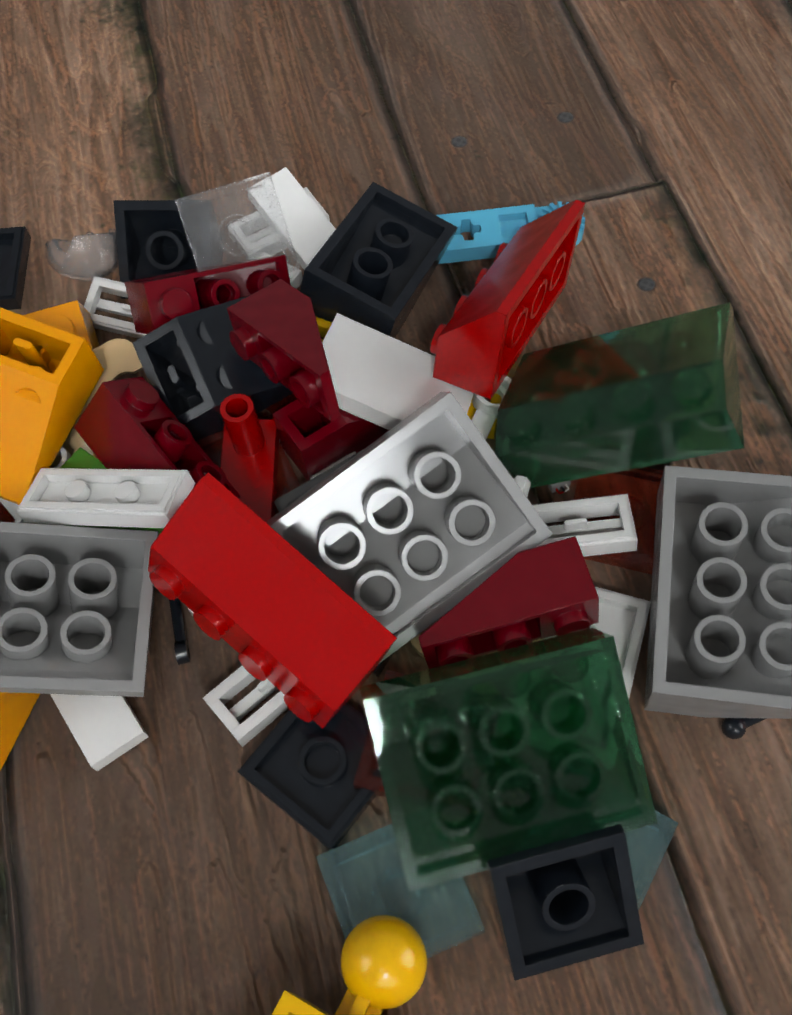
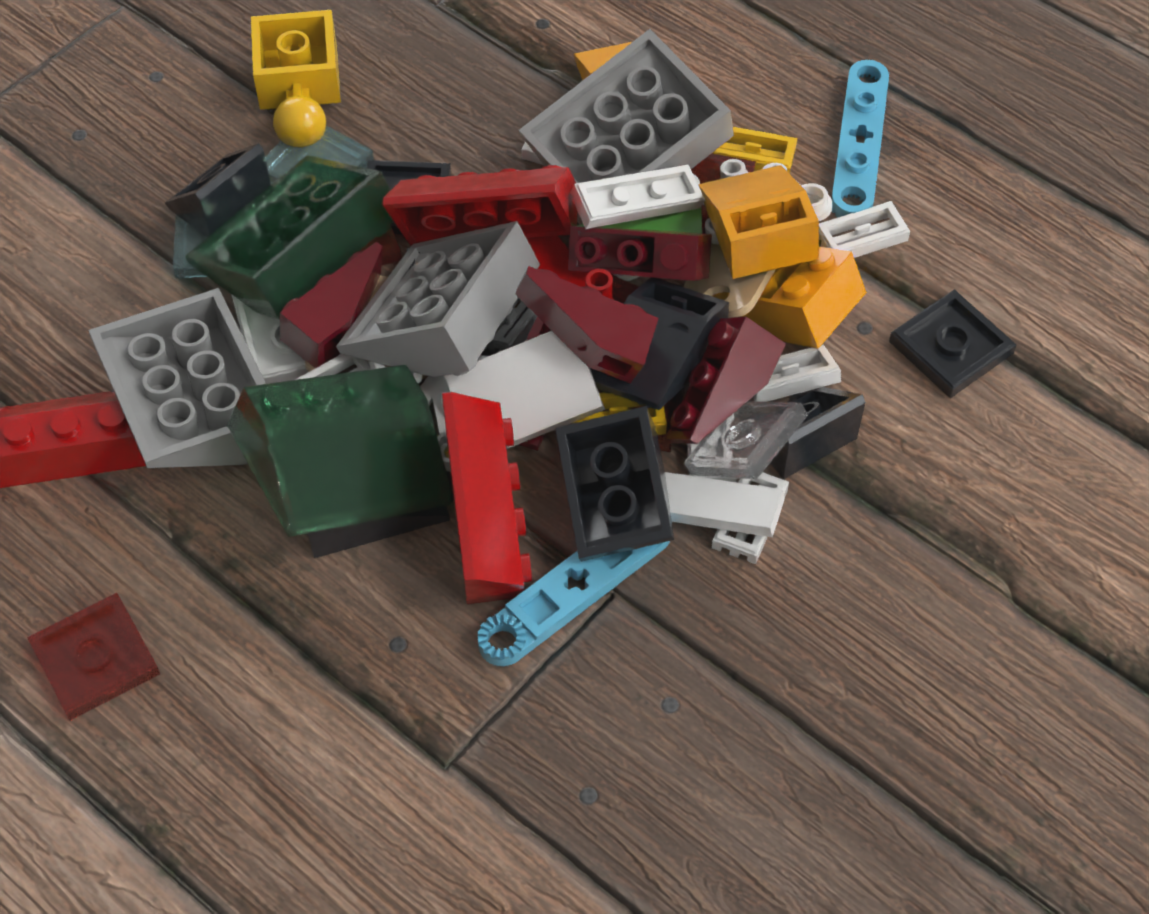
camera: 140 degrees right, 5 degrees down
(84, 255) = (876, 377): clear hair -> none

